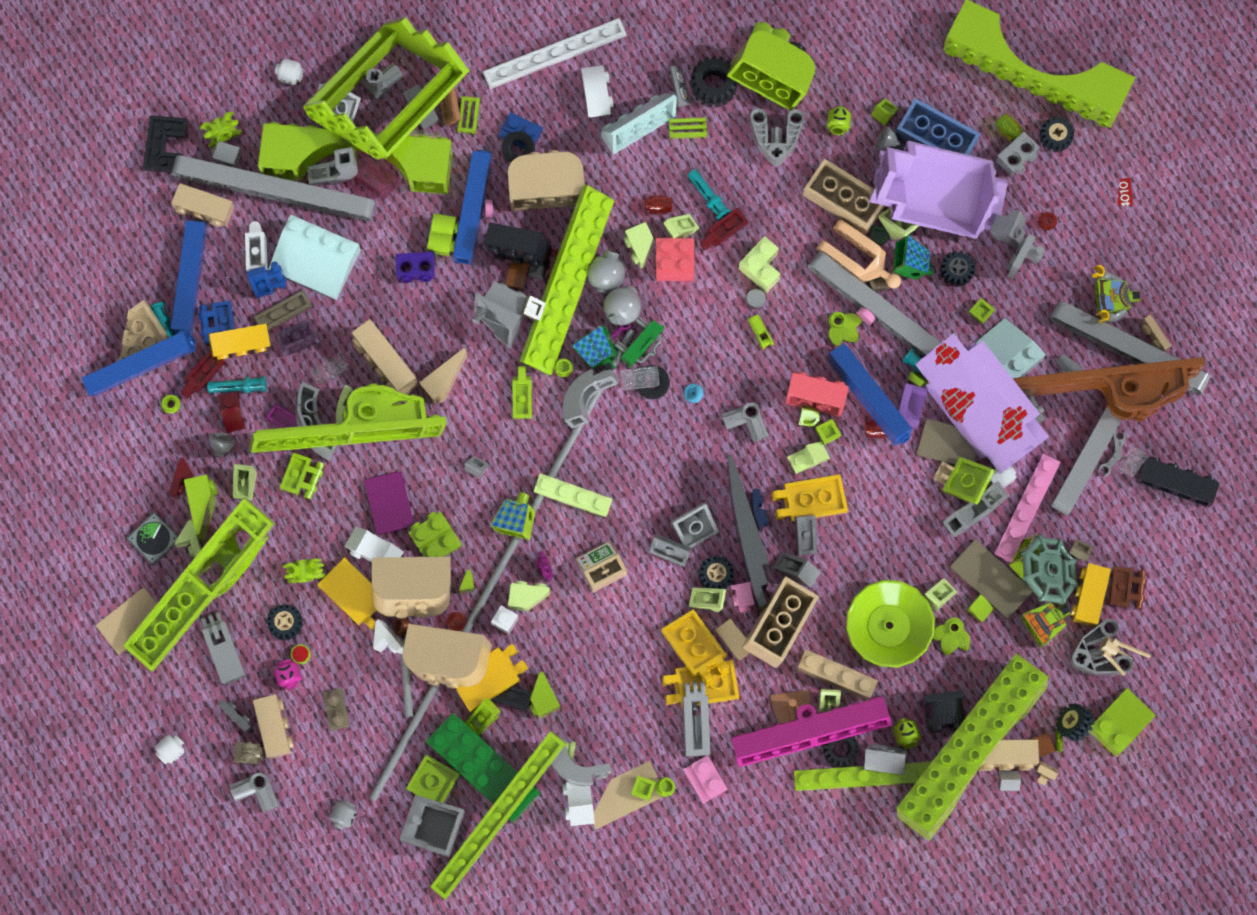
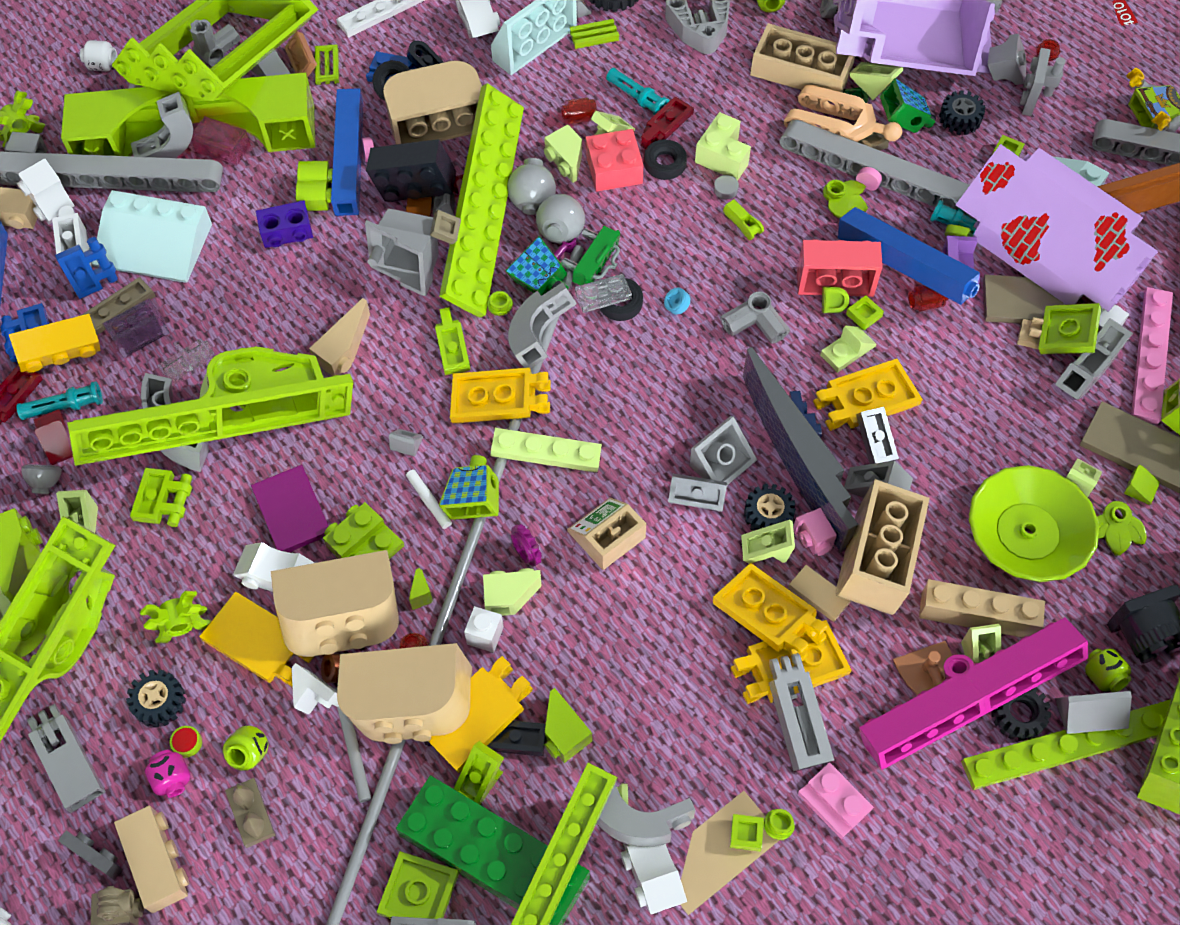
camera: 10 degrees left, 15 degrees down
(242, 210) = (45, 190): none -> white brick
(339, 668) = (245, 748): none -> lime head
(383, 357) = (251, 322): tan brick -> none
(484, 514) = (428, 499): none -> white piece
(546, 445) = (498, 395): none -> yellow tile
(549, 132) = (426, 55): none -> black plate
(718, 253) = (665, 172): none -> black tyre

